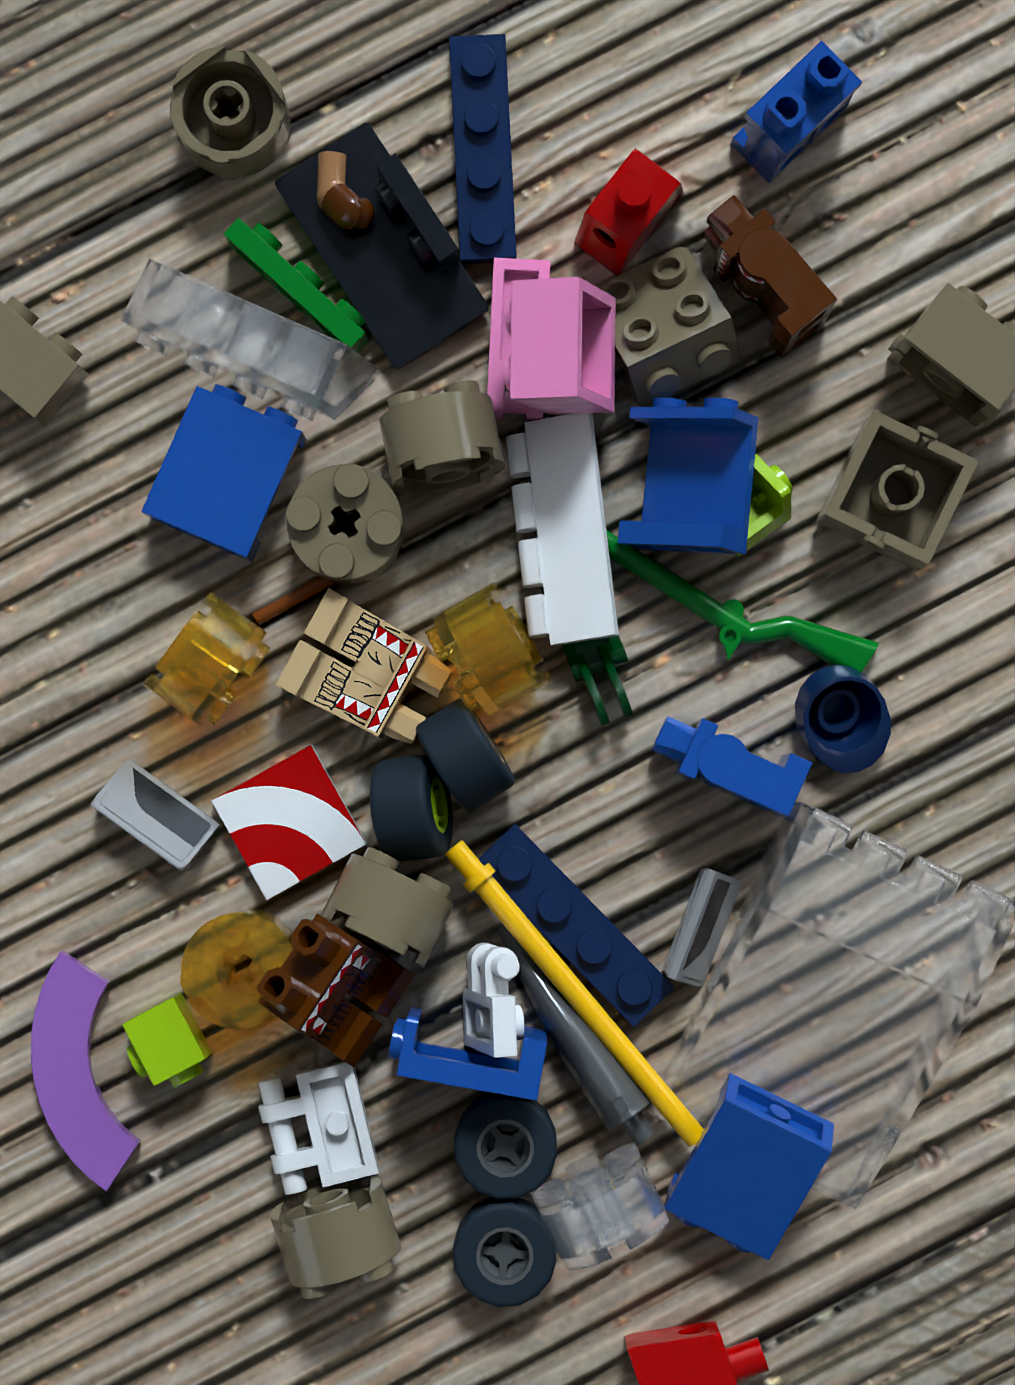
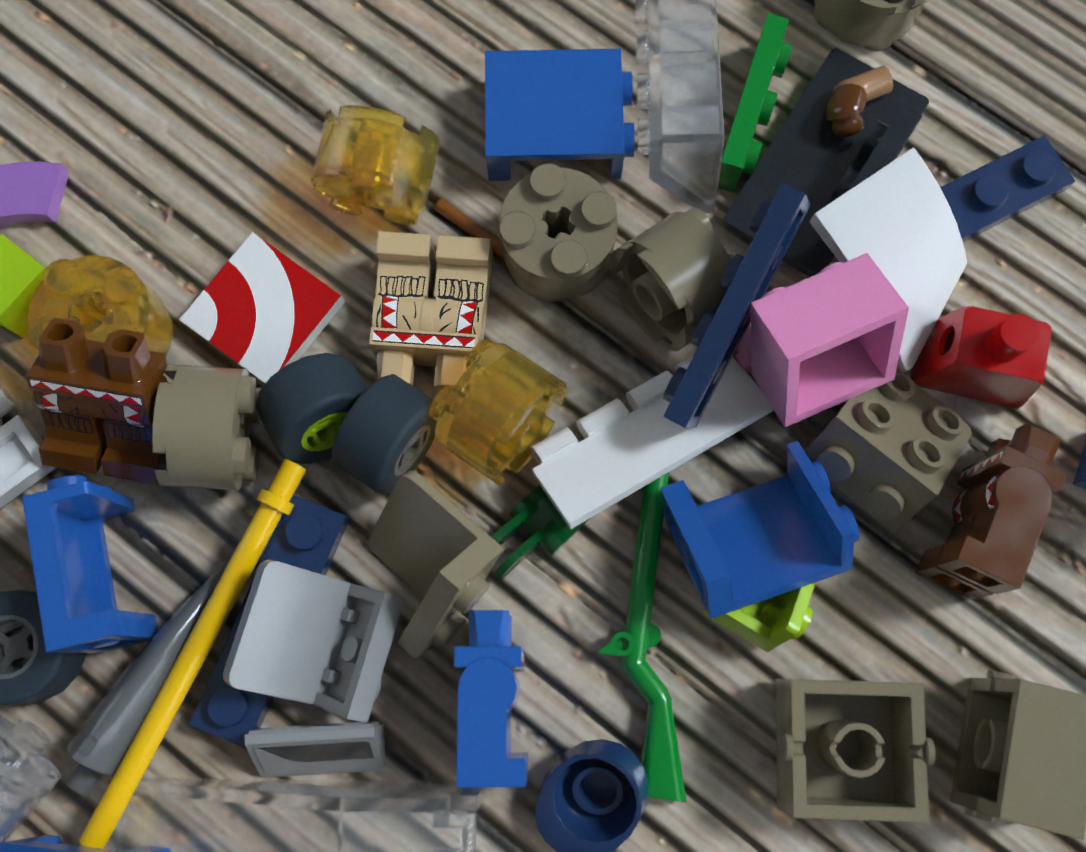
camera: 65 degrees right, 10 degrees down
(155, 815) = (218, 191): light grey slope -> none
(485, 390) = (745, 282): none -> dark blue plate
(489, 1011) = (144, 571): white plate -> none
(505, 233) = (909, 235): none -> white slope
(590, 758) = (435, 554): none -> dark tan bracket
(615, 887) = (313, 640): none -> light grey bracket

